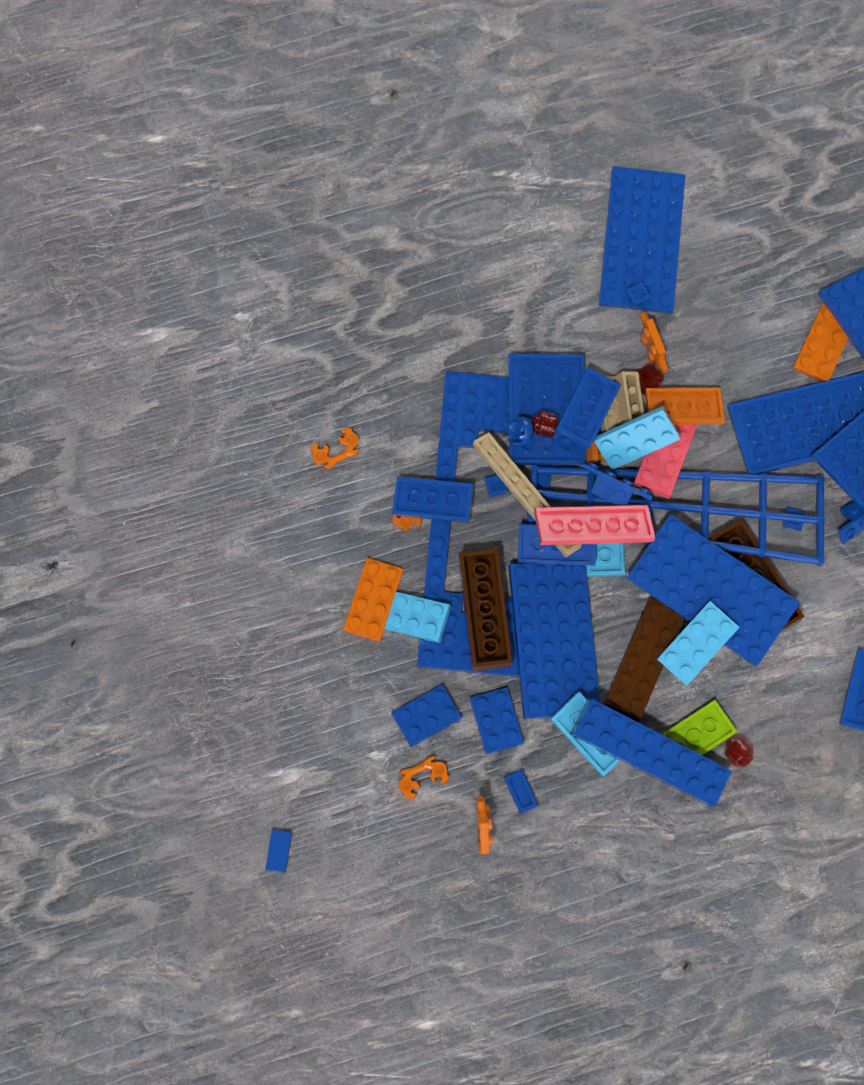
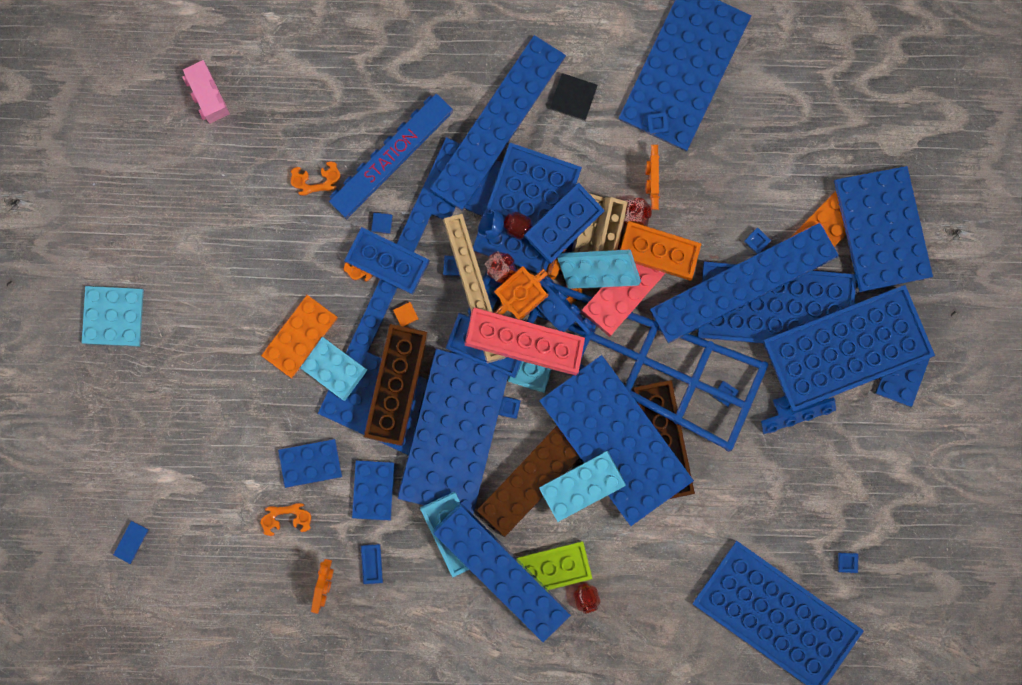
camera: 25 degrees right, 10 degrees up
(185, 641) = (112, 316): none -> medium azure plate
(204, 402) = (205, 92): none -> bright pink wedge
(400, 405) = (390, 156): none -> blue brick
(414, 468) = (382, 223): none -> blue tile
(467, 544) = (405, 314): none -> orange tile
(489, 343) = (497, 123): none -> blue plate
(544, 466) = (500, 266): none -> clear red brick
(550, 297) = (573, 97): none -> black tile
(573, 483) = (521, 293): none -> orange plate
(598, 599) = (509, 407): none -> blue tile
(769, 370) = (757, 241): none -> blue plate
(772, 411) = (744, 283): none -> blue plate

